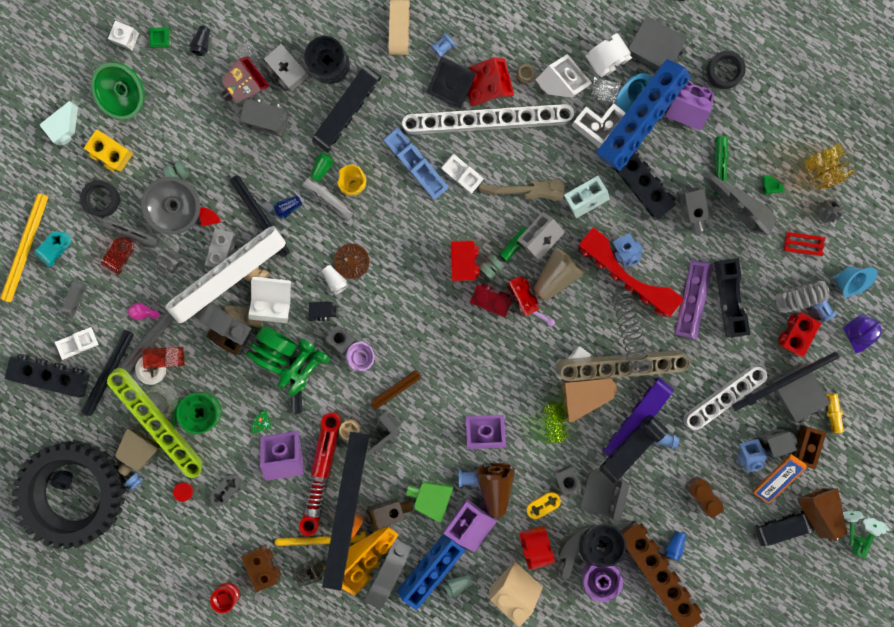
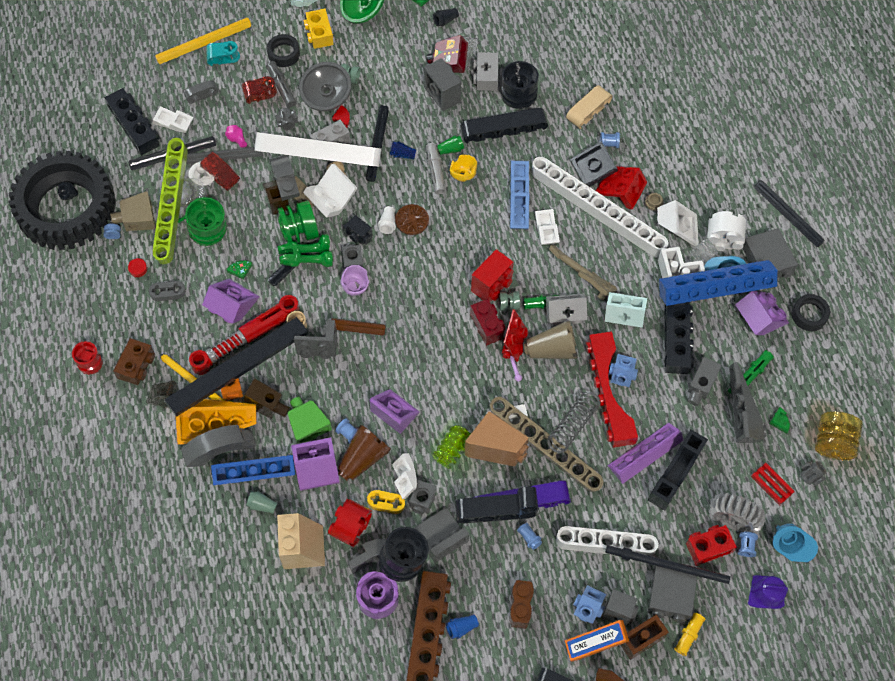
camera: 45 degrees right, 25 degrees down
(546, 479) = (406, 475): none -> white slope

